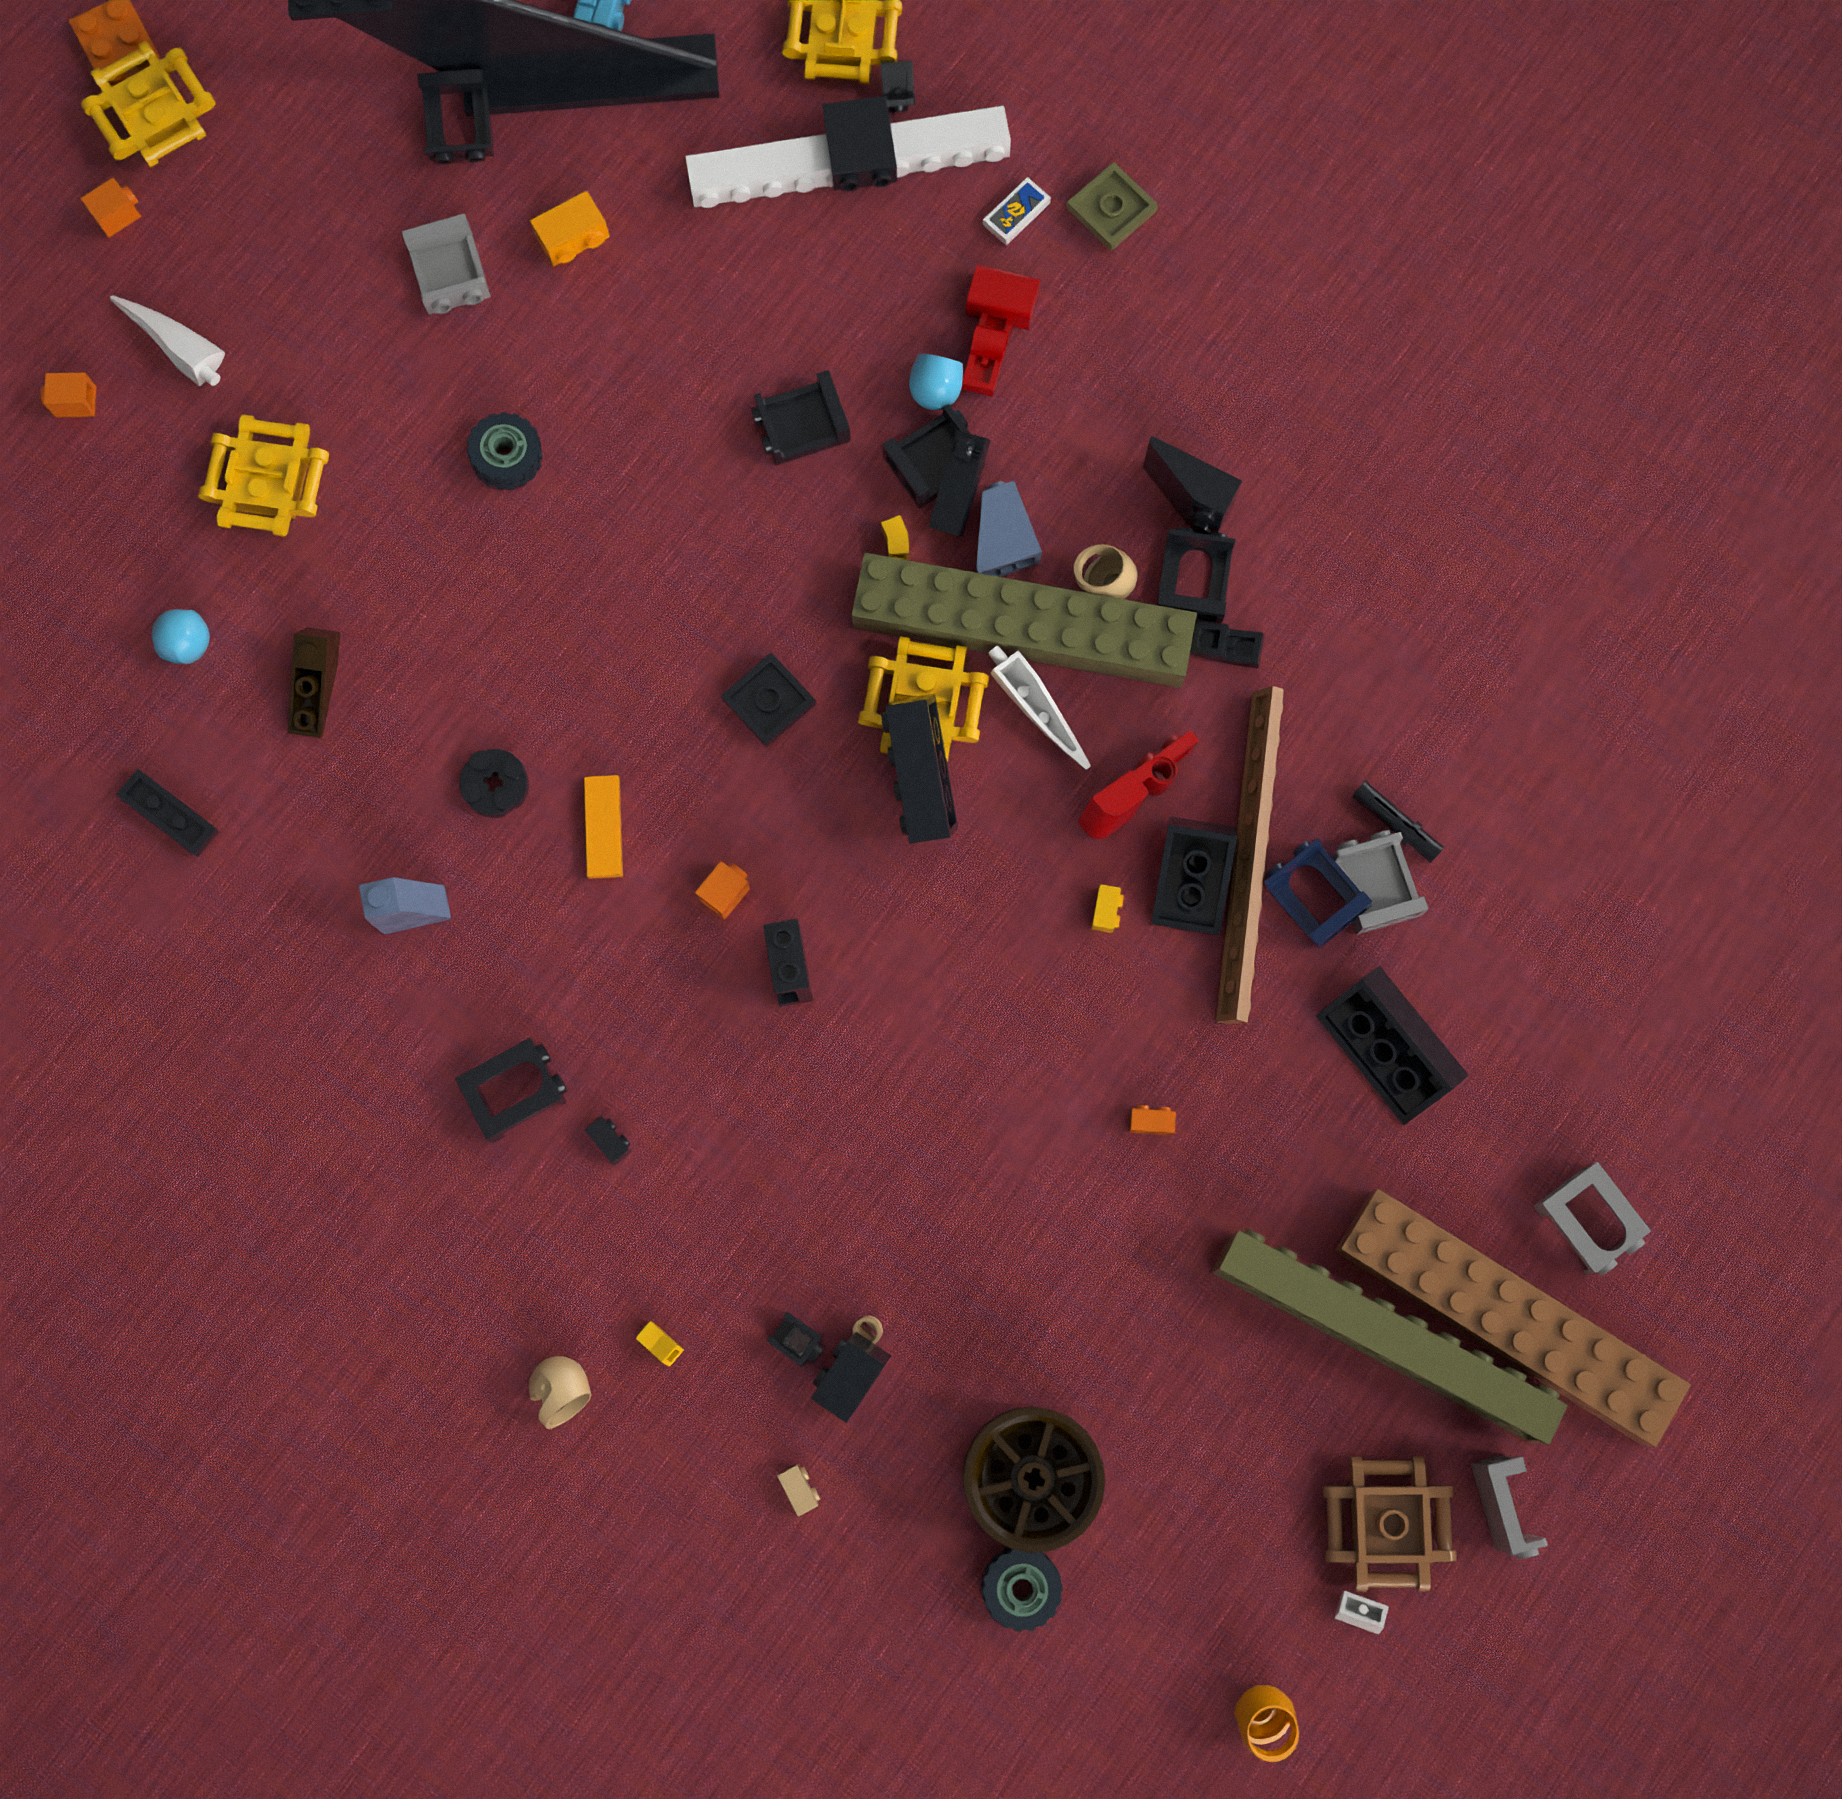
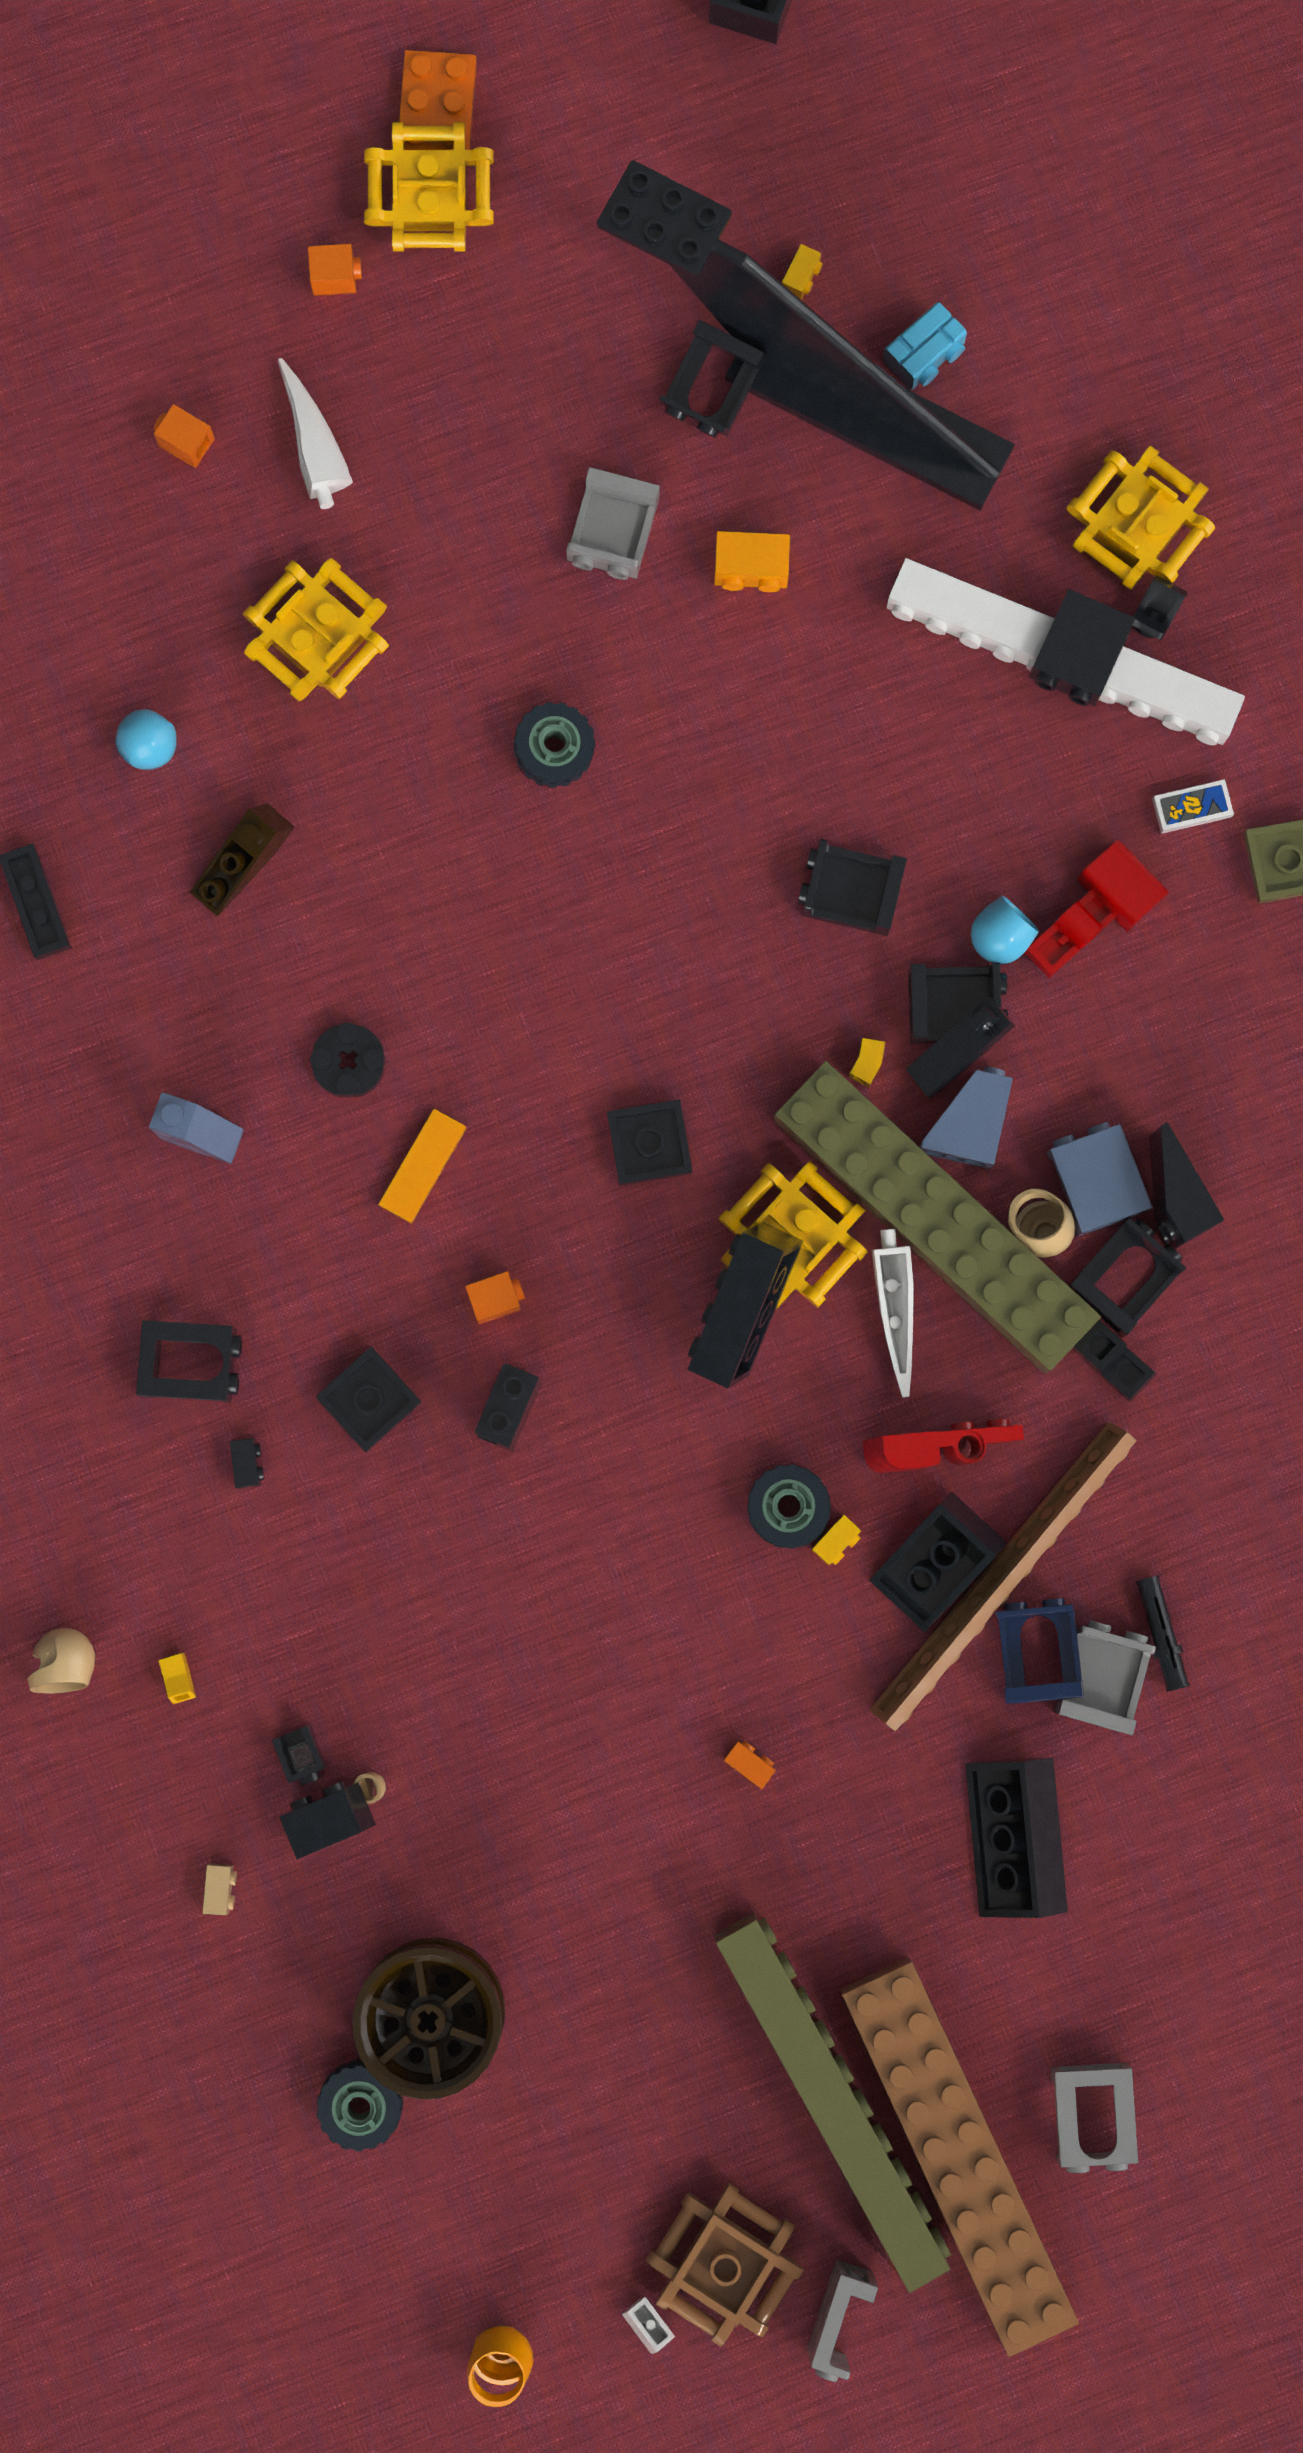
camera: 30 degrees right, 5 degrees up
(674, 1029) = (368, 1399): none -> black plate
(1049, 884) = (784, 1482): none -> black wheel
(1127, 515) = (1099, 1178): none -> sand blue panel

